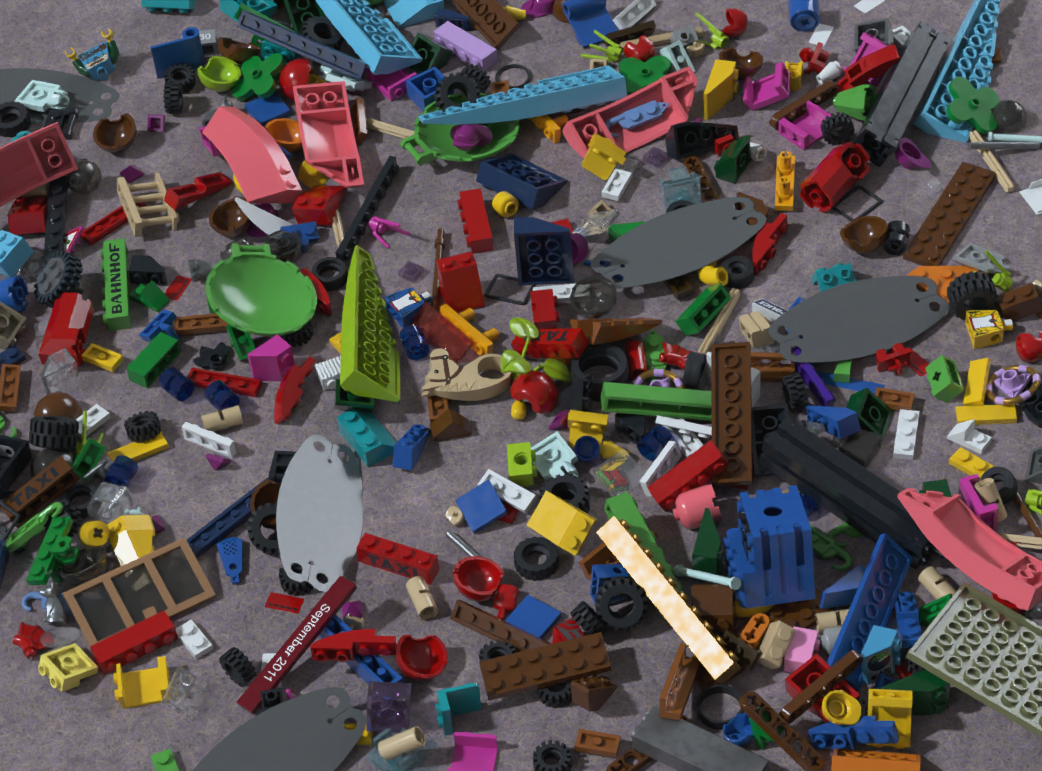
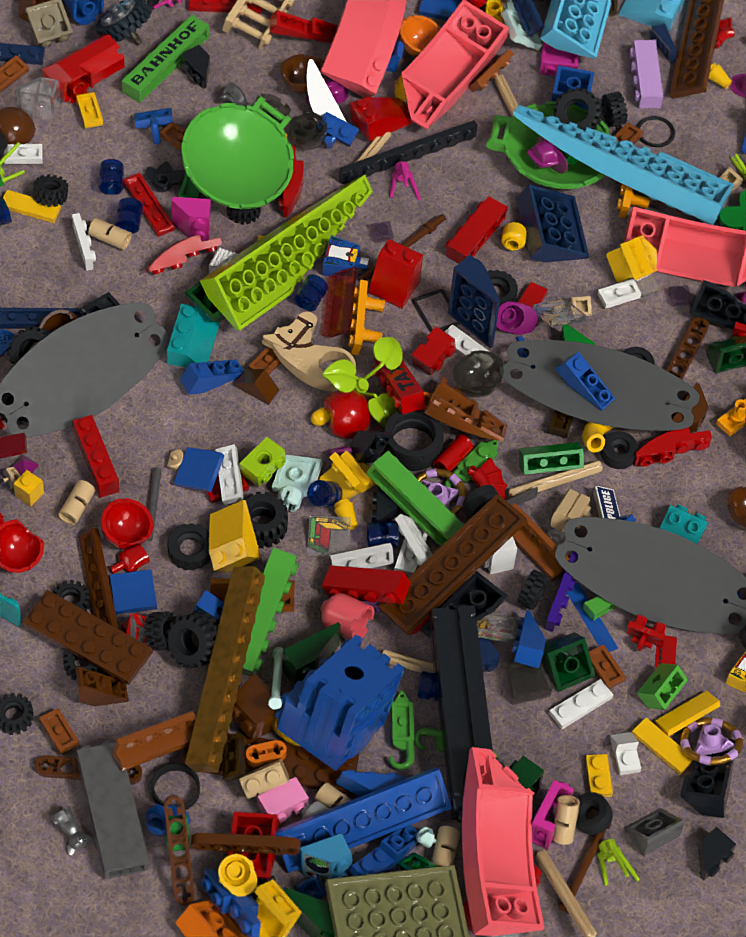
camera: 35 degrees right, 10 degrees up
(150, 296) = (177, 89): green slope -> none
(153, 360) = (120, 143): green brick -> none
(177, 287) = (206, 98): red sticker -> none
(217, 461) = (71, 263): magenta slope -> none
(330, 263) = (315, 170): black tyre -> none
(377, 616) = (28, 488): none -> yellow brick
(432, 53) = (612, 57): dark green slope -> none
(638, 116) = (702, 248): medium blue plate -> none
(666, 244) = (584, 380): none -> blue slope
(680, 187) = (656, 339): clear light blue panel -> none
(919, 588) = (426, 837): none -> light aqua piece

